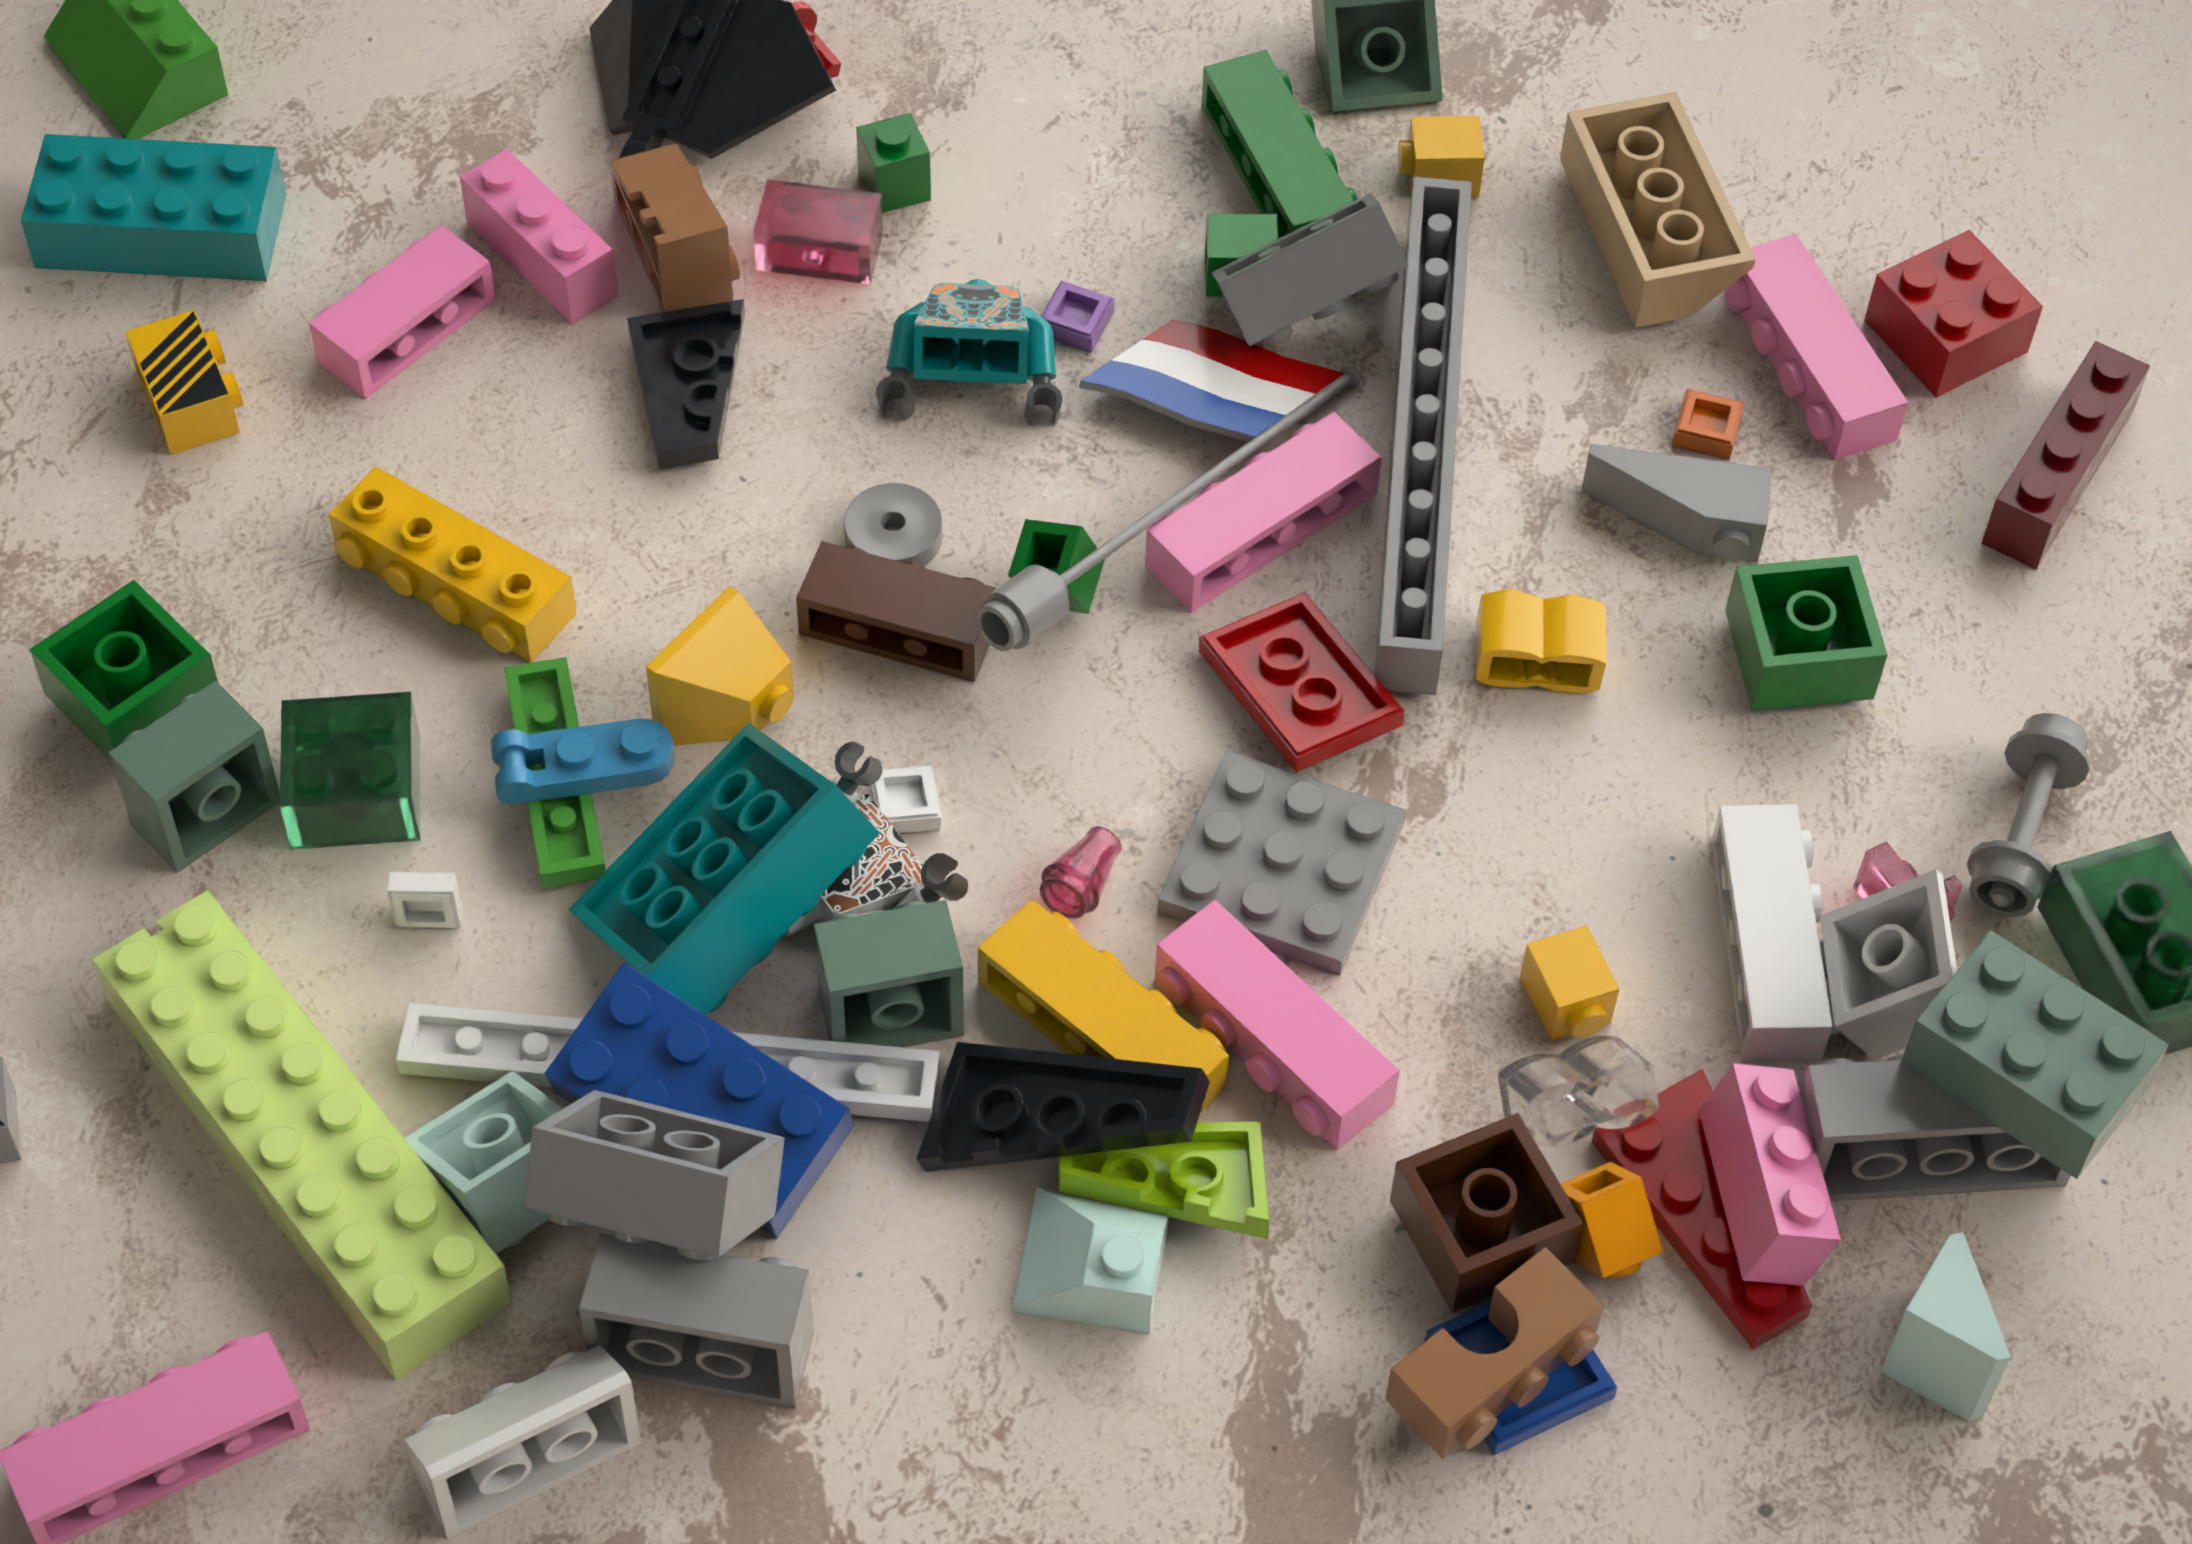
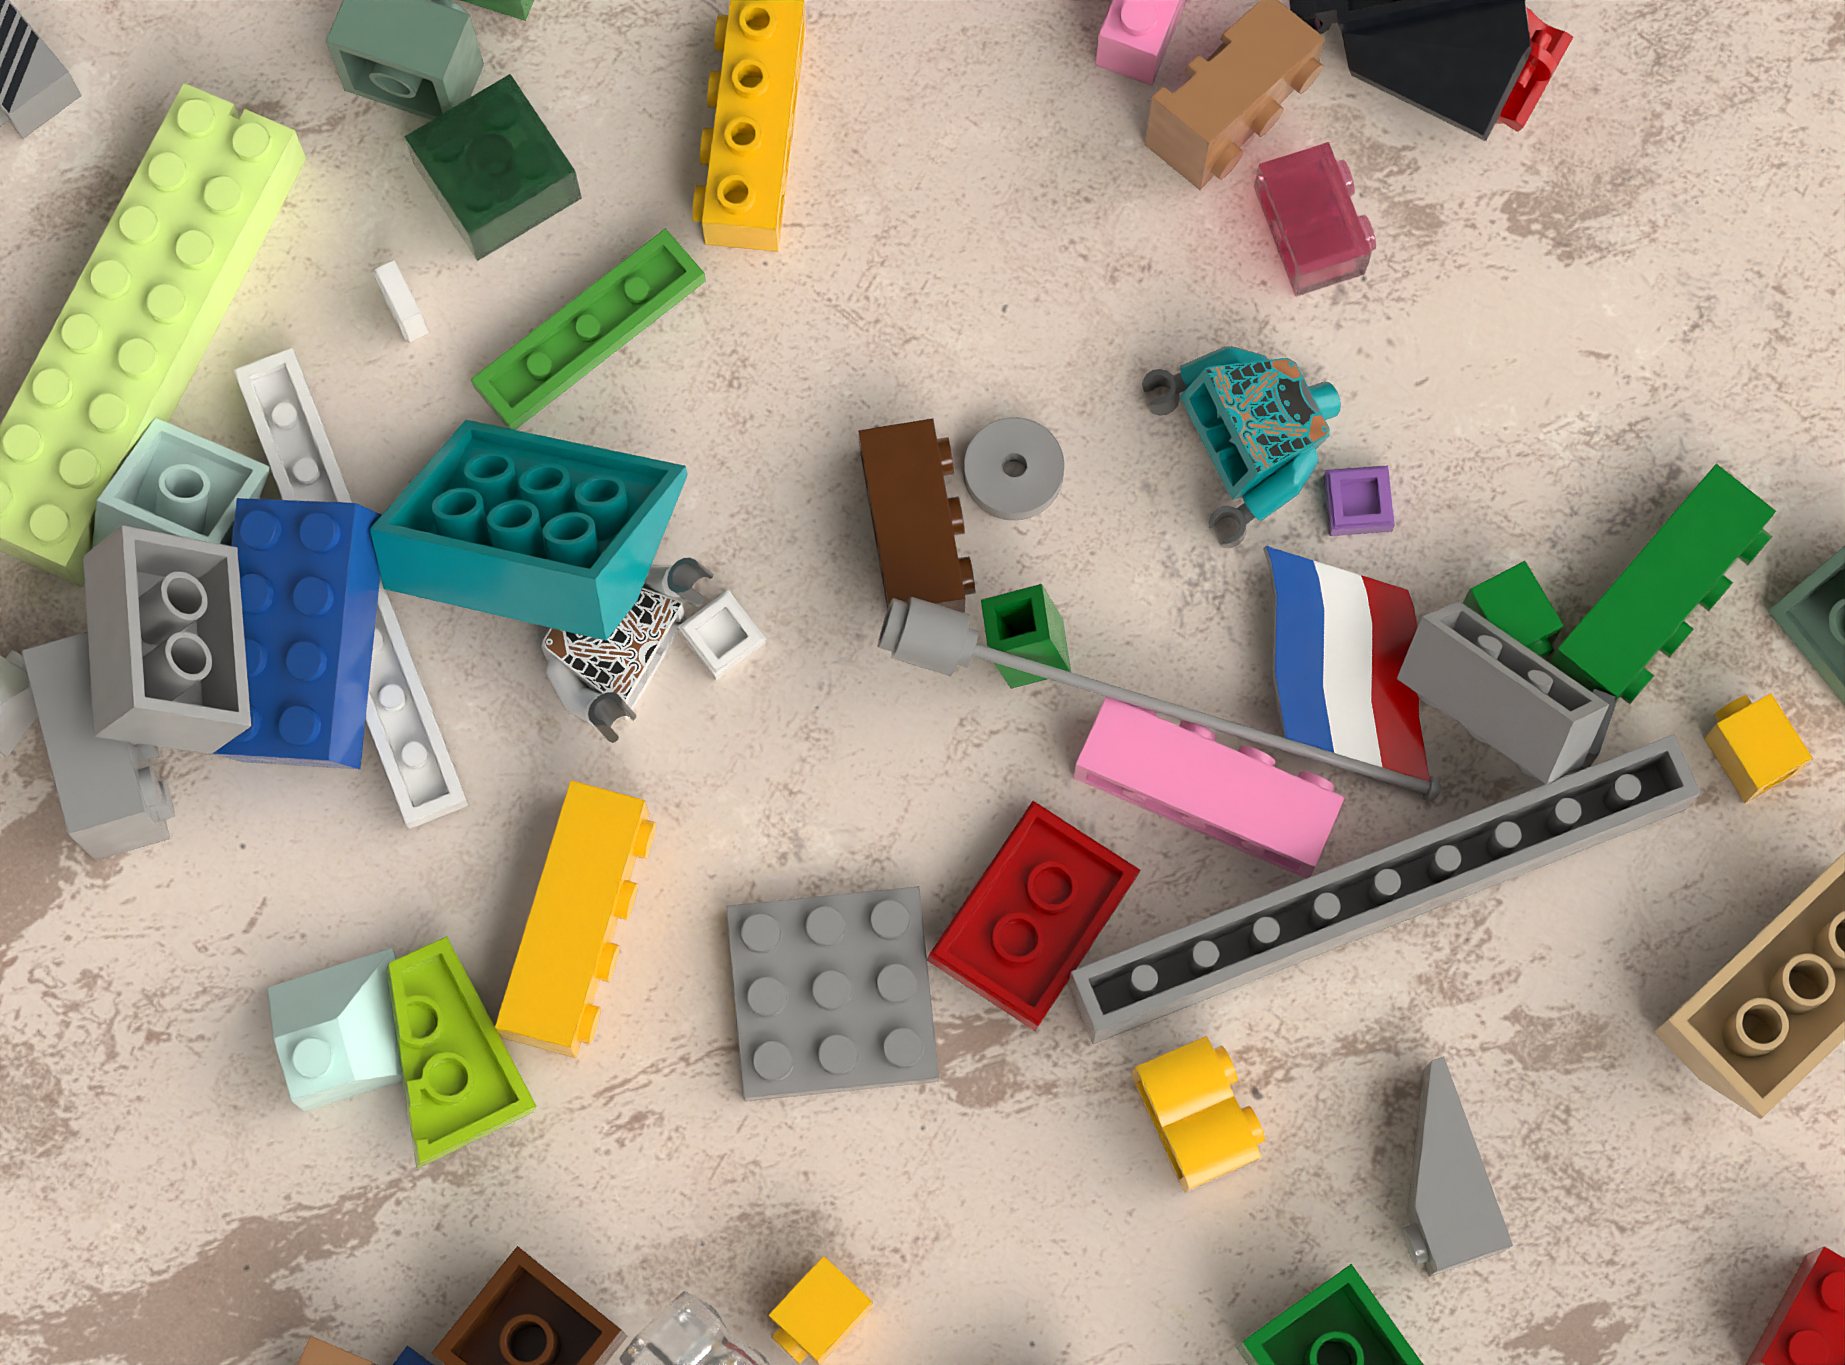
camera: 65 degrees right, 20 degrees up
(581, 760) = (596, 348): dark azure plate -> none
(687, 377) = (1076, 198): black wing -> none
(720, 675) = (743, 413): yellow slope -> none
(891, 976) = (497, 721): sand green brick -> none
(894, 162) = (1432, 240): green brick -> none
(1053, 1104) = (449, 920): black wing -> none
(1080, 874) = (718, 826): clear pink cone -> none
(1275, 1025) = (641, 1071): bright pink brick -> none
(1708, 424) = (1570, 1156): orange tile -> none
(1817, 350) = (1718, 1221): bright pink brick -> none

